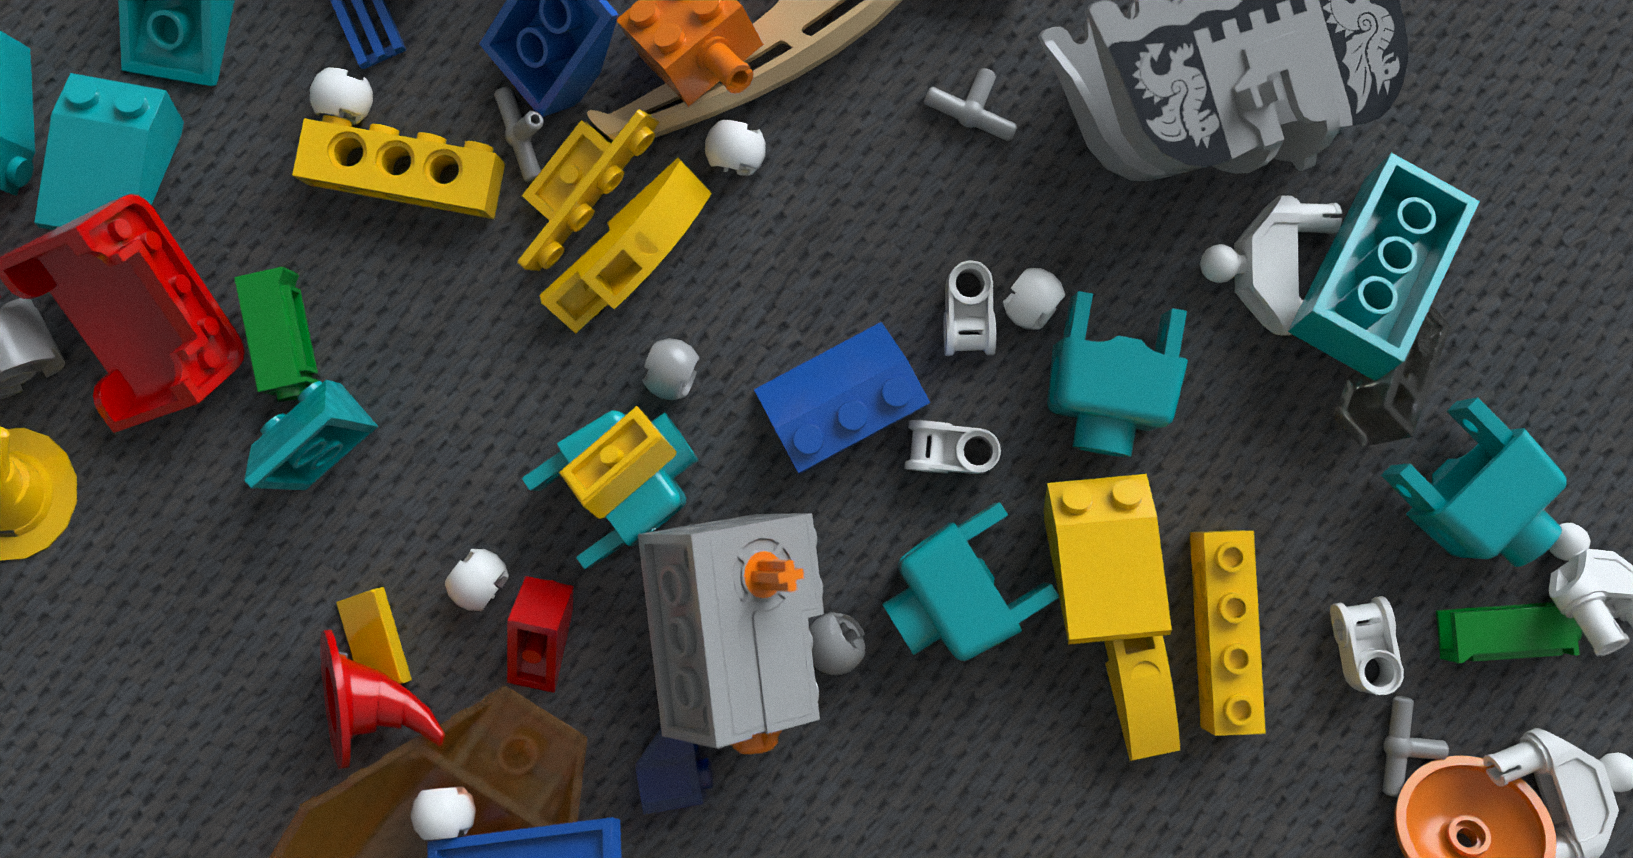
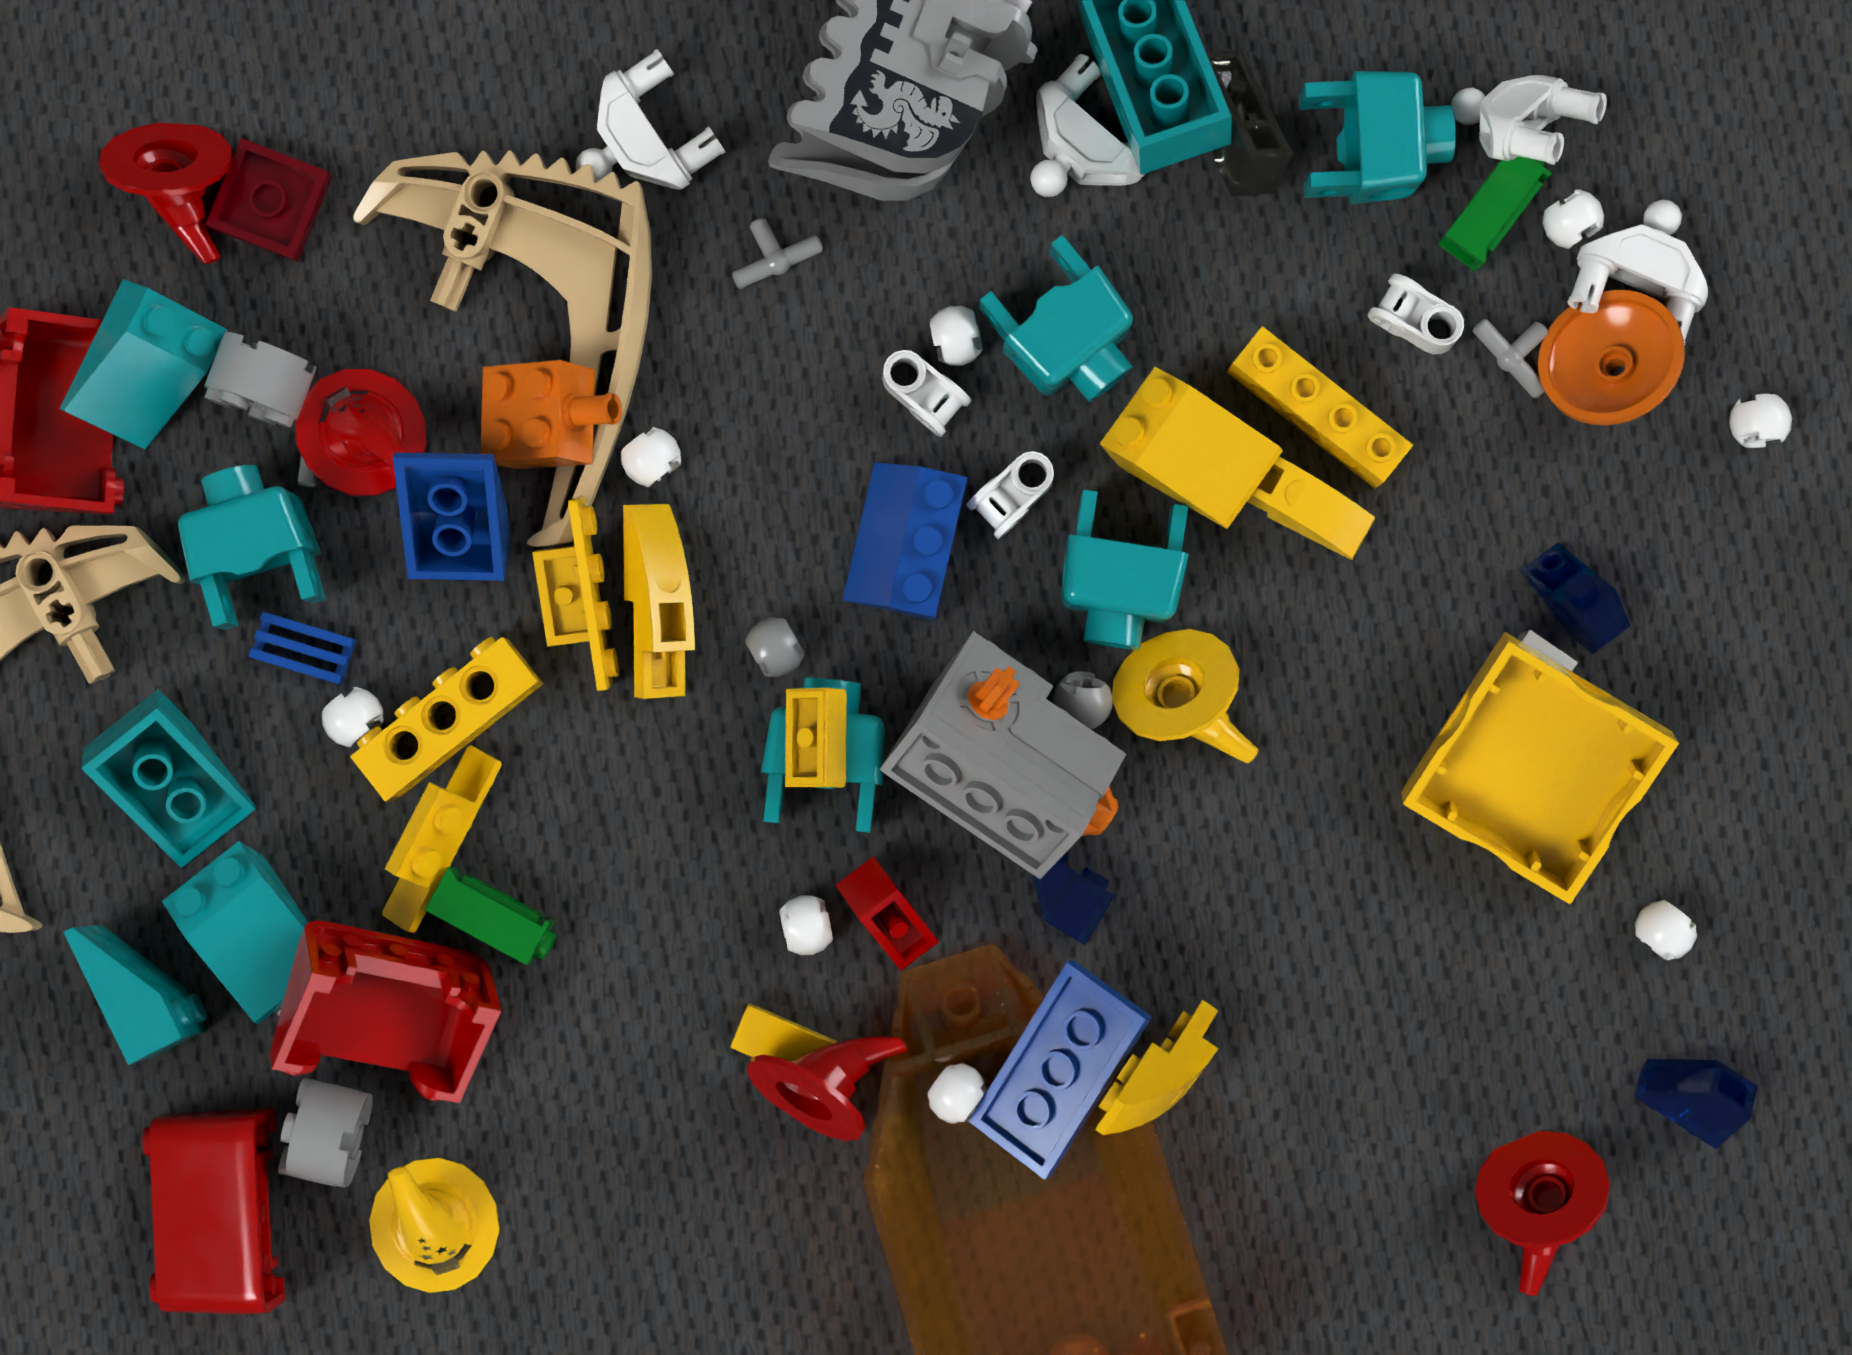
camera: 55 degrees left, 0 degrees up
(301, 236) = (435, 836): none -> yellow bracket
(307, 439) = (591, 955): teal slope -> none
(520, 131) = (497, 607): light grey piece -> none
(909, 715) = (1180, 690): none -> yellow piece
(1555, 702) = (1568, 221): none -> white piece

